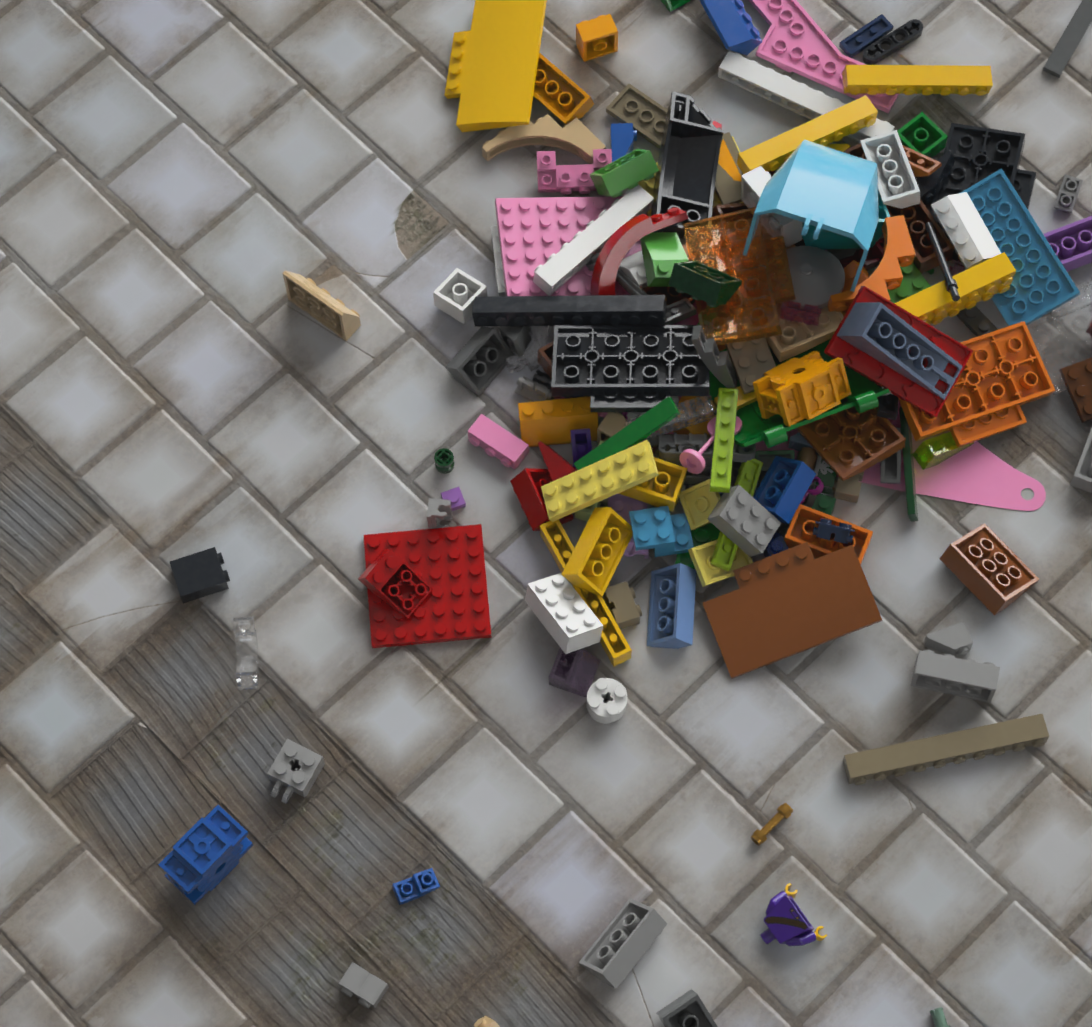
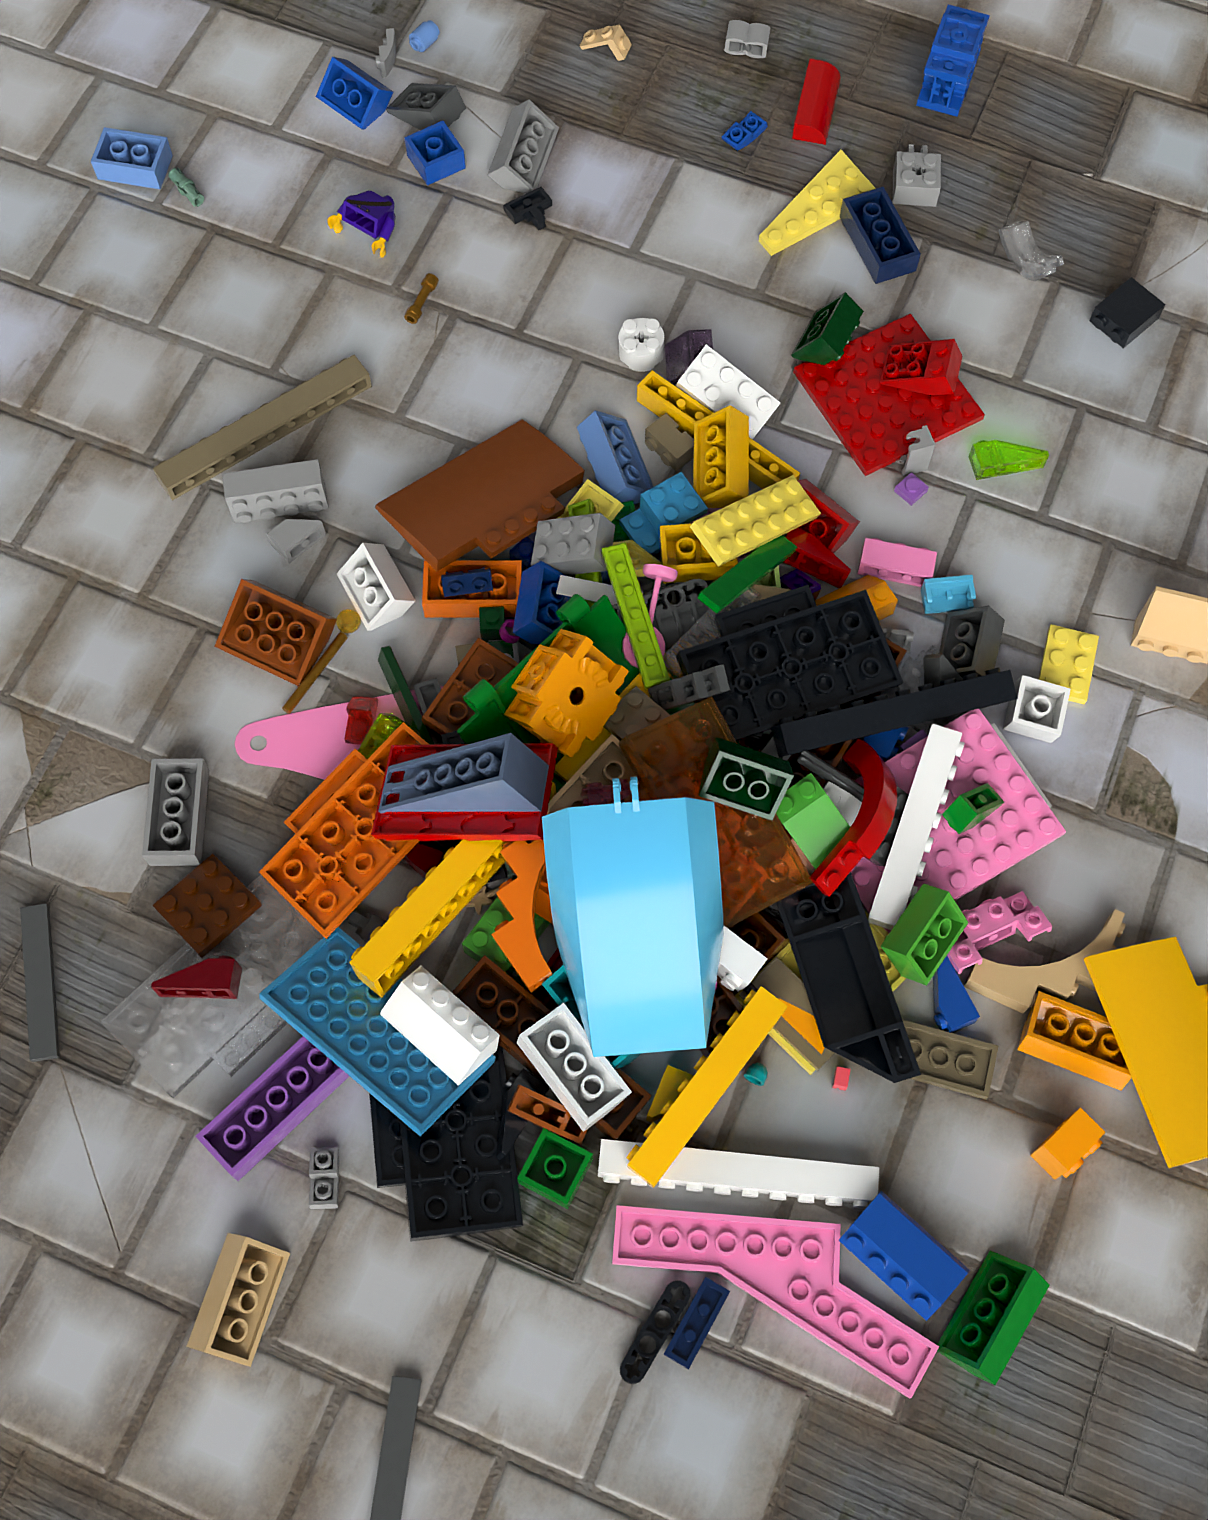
camera: 155 degrees right, 0 degrees up
(337, 889) = (817, 102): none -> red brick
(359, 721) = (879, 235): none -> dark blue brick
(376, 493) = (1003, 458): none -> clear neon green slope
(381, 786) = (816, 204): none -> light yellow wing
(415, 326) = (1069, 660): none -> light yellow plate
(445, 465) = (944, 519): dark green wheel -> none
(452, 646) = (829, 331): none -> dark green slope
(471, 406) = (948, 594): none -> medium azure hinge
(550, 231) = (972, 808): none -> green slope
(642, 879) = (529, 207): none -> black hinge
(705, 964) = (435, 152): none -> blue brick
(752, 486) = (586, 589): none -> white sticker
(900, 574) = (375, 586): none -> white slope
(917, 79) = (593, 1264): yellow brick -> none
(930, 558) = (348, 621): none -> clear yellow plate
(945, 479) = (360, 718): none -> clear red slope
(950, 284) = (427, 895): black bar -> none
(978, 522) = (314, 673): none -> pearl gold bar

